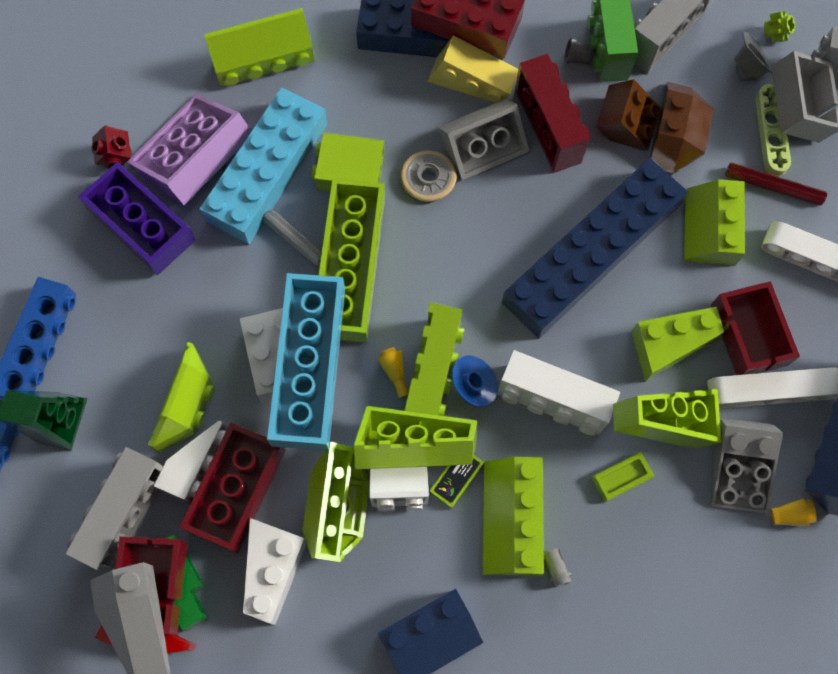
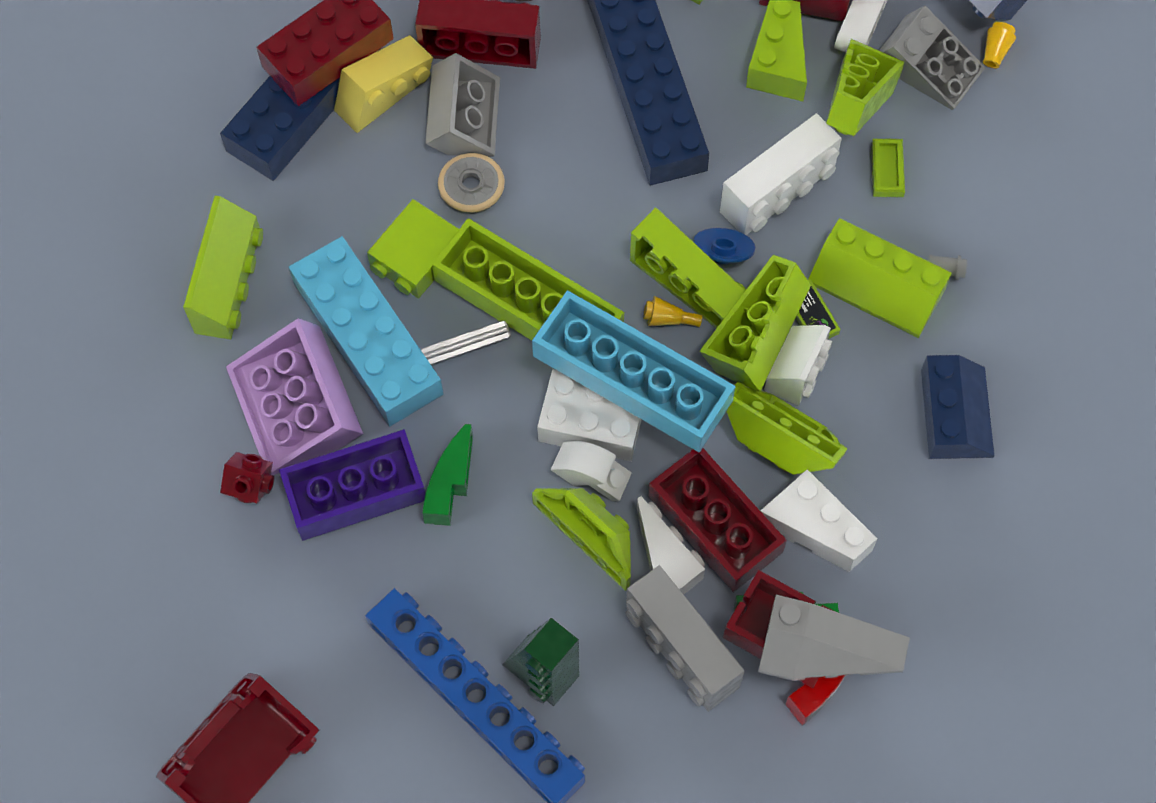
camera: 60 degrees left, 5 degrees down
(179, 280) = (449, 478): none -> green slope
(230, 376) = (591, 465): none -> white brick

